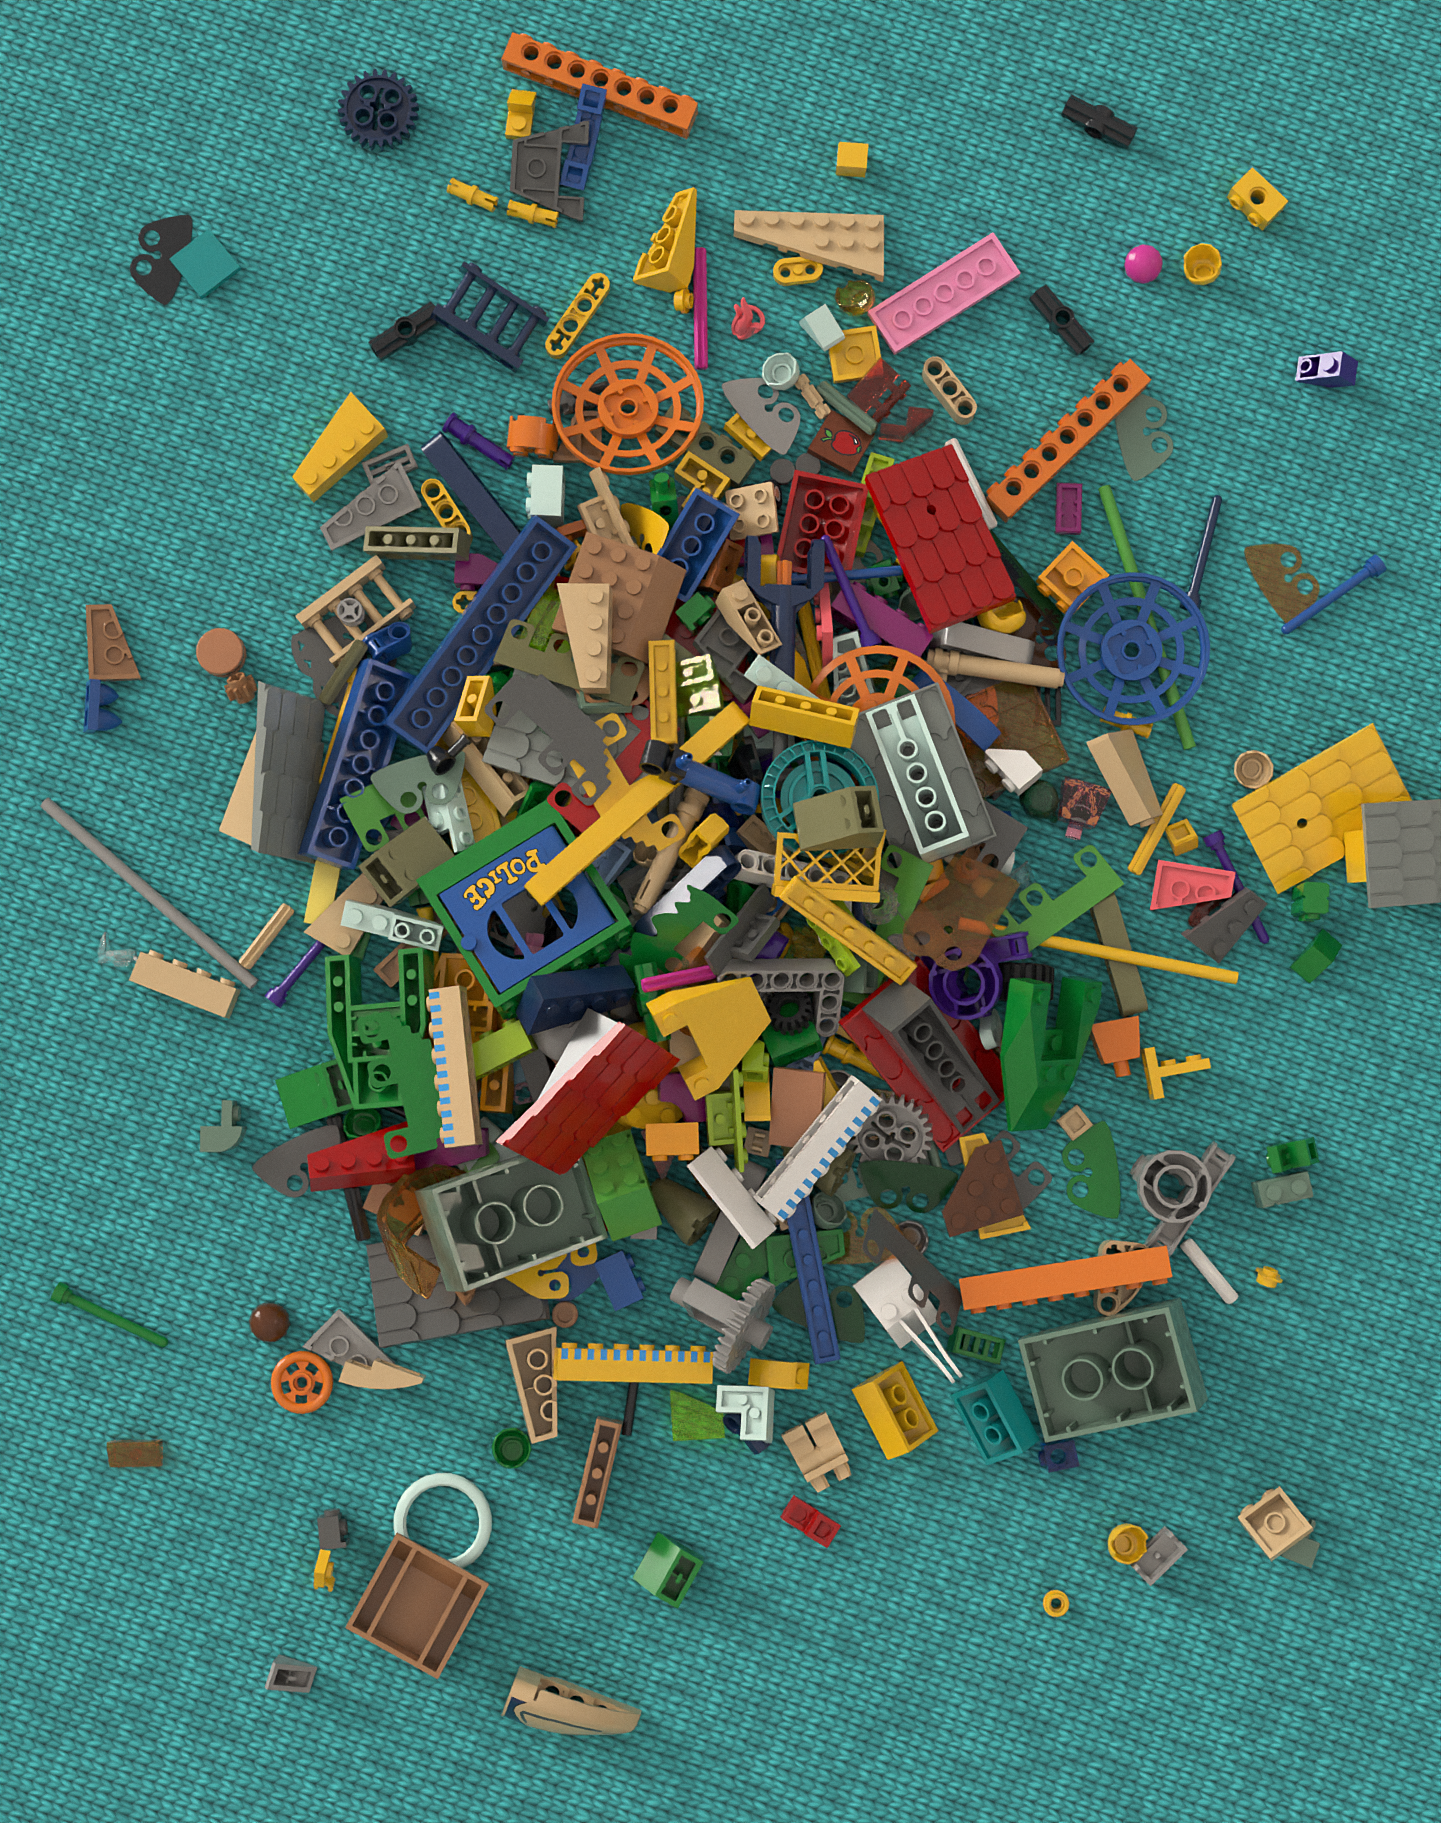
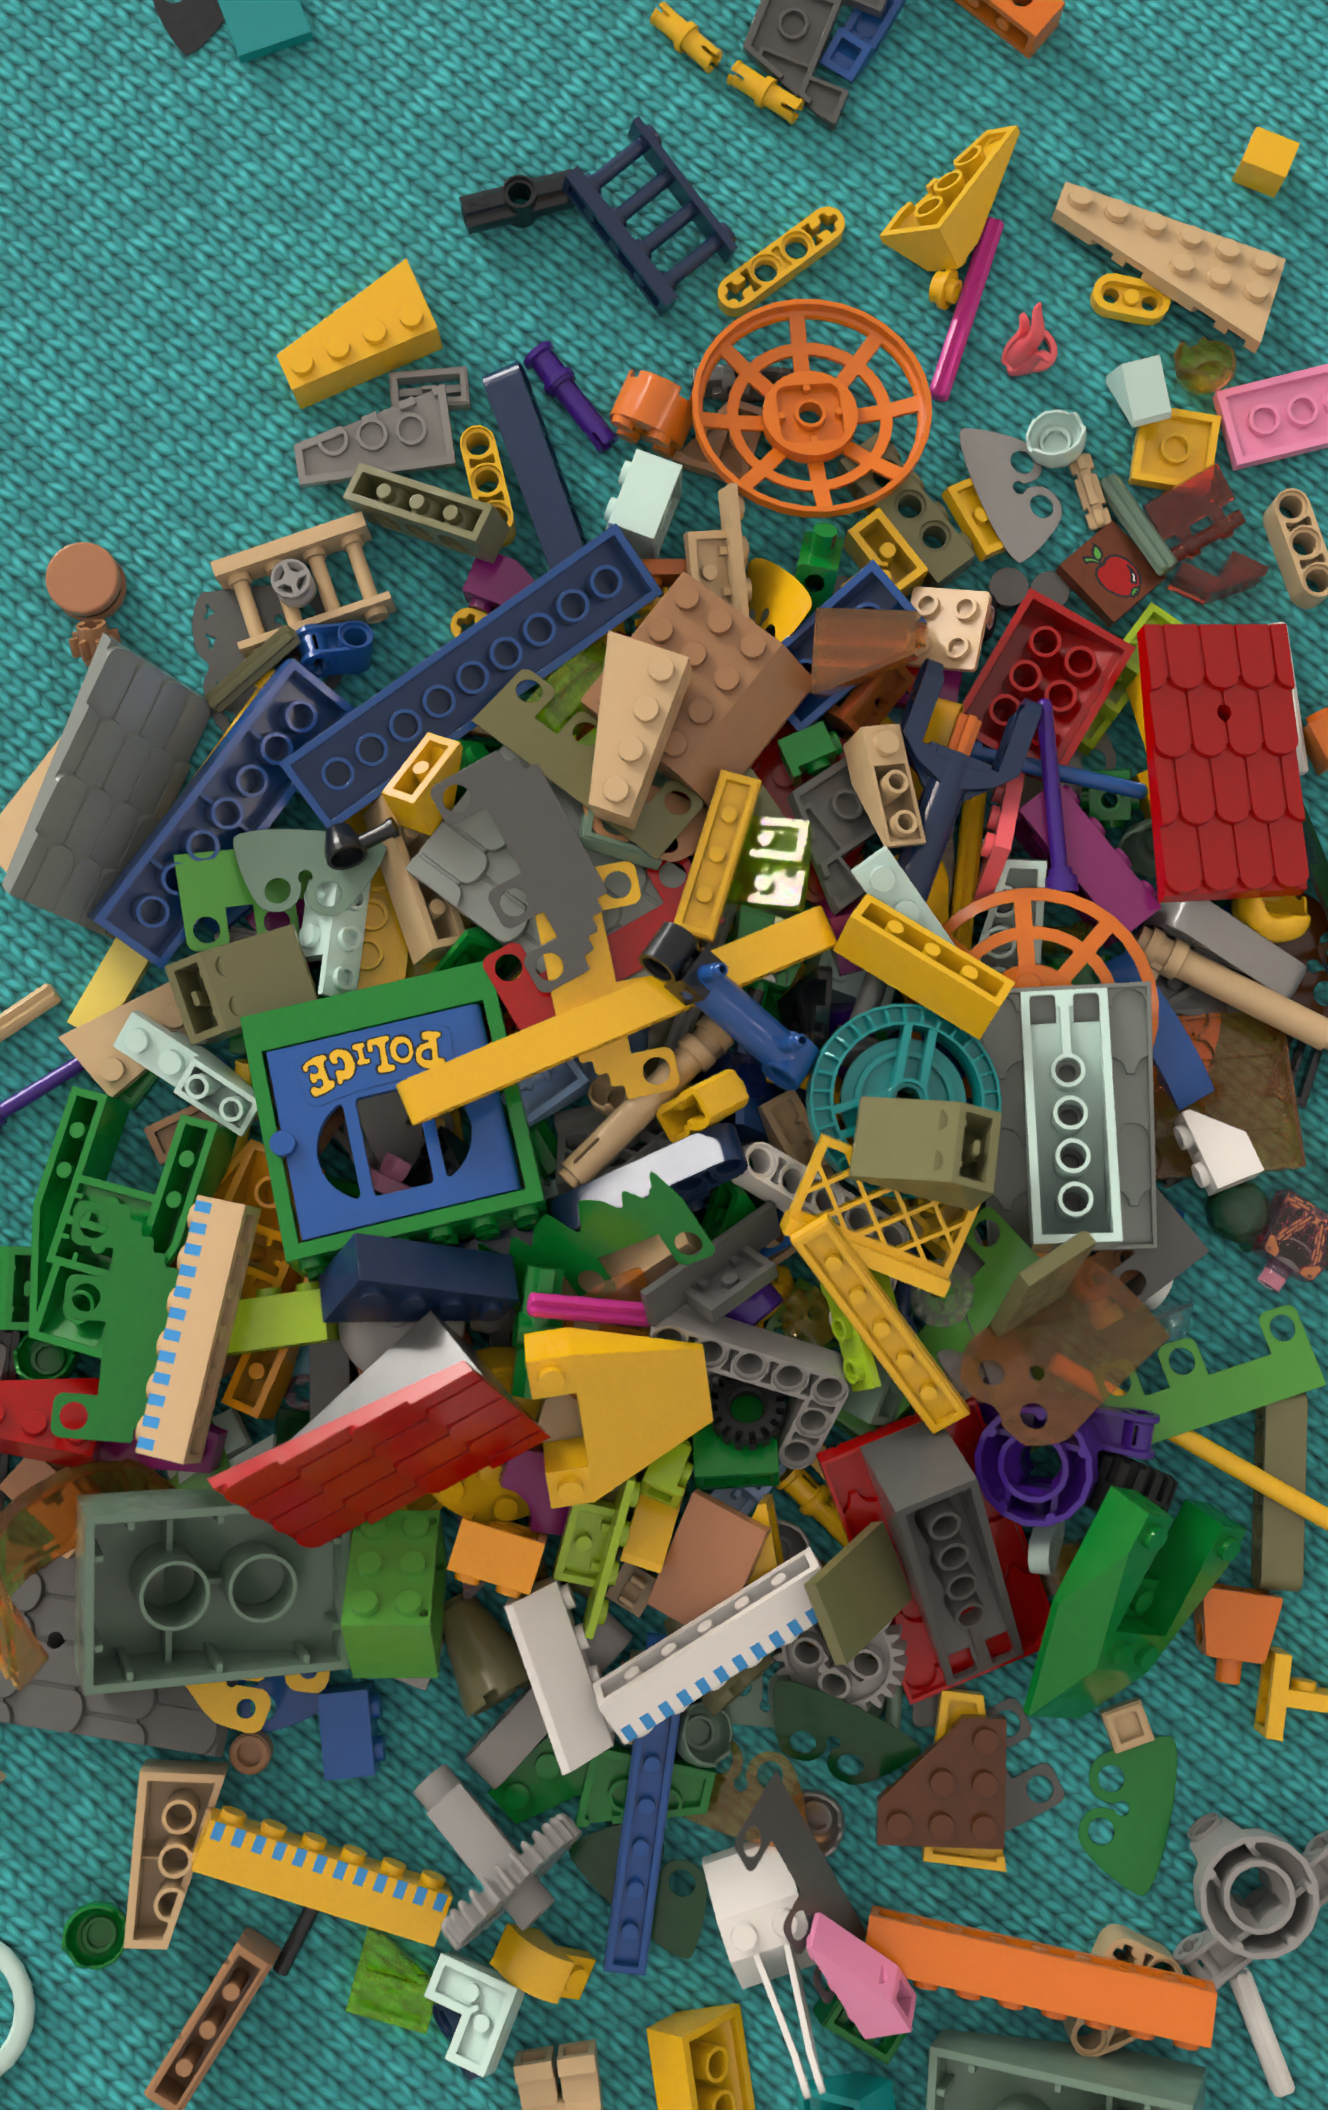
camera: 25 degrees right, 0 degrees up
(706, 540) = (862, 645): none -> clear orange slope
(887, 1089) = (858, 1592): none -> olive tile
(932, 876) = (1042, 1283): none -> olive tile
(967, 1313) = (863, 1979): none -> bright pink slope

